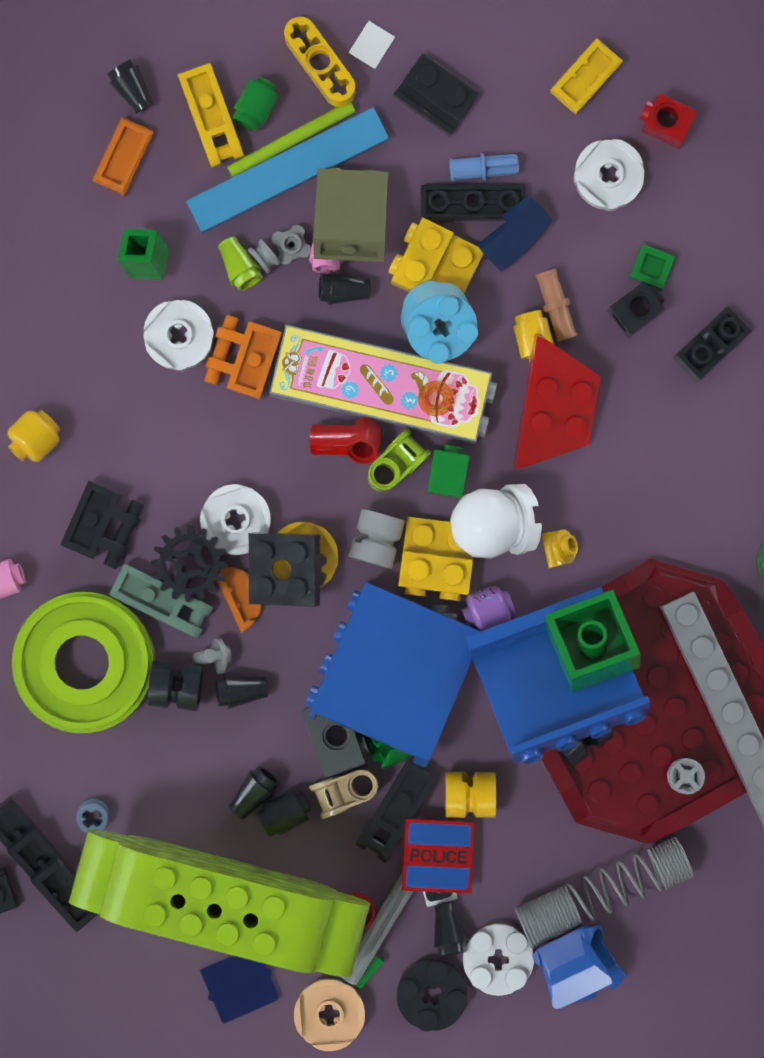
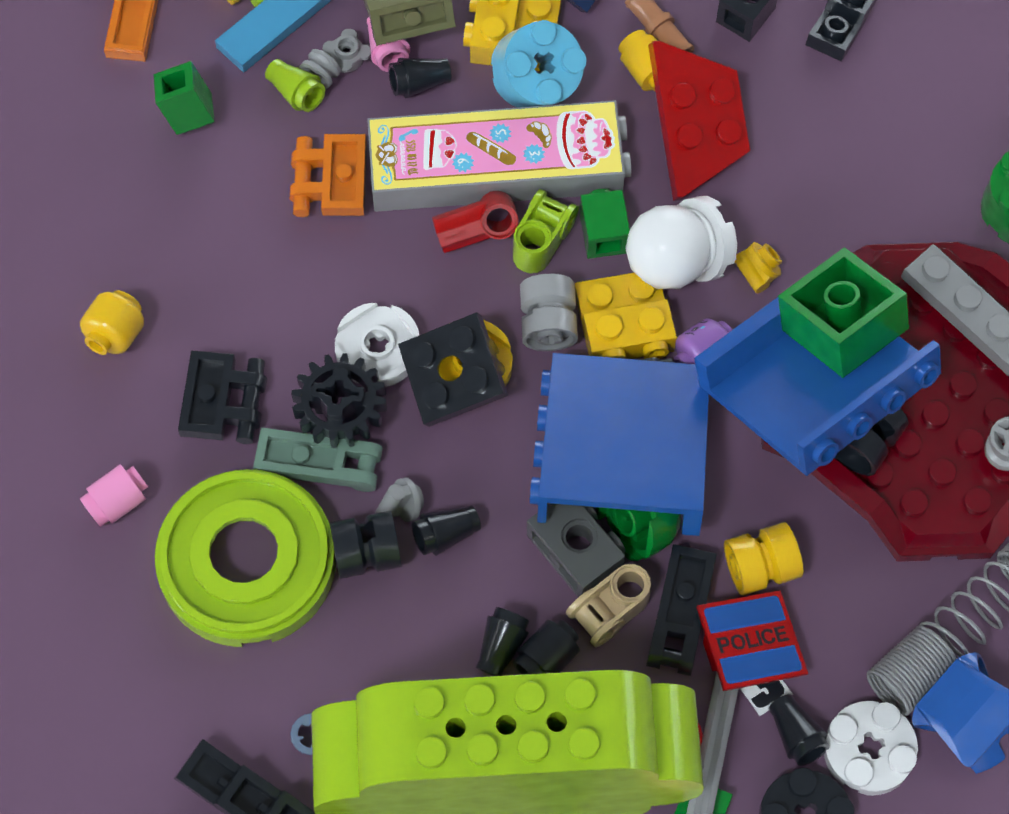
camera: 20 degrees left, 20 degrees down
(198, 334) = (250, 196): white plate -> none
(237, 596) = (406, 427): orange tile -> none
(435, 387) = (563, 128): clear orange plate -> none

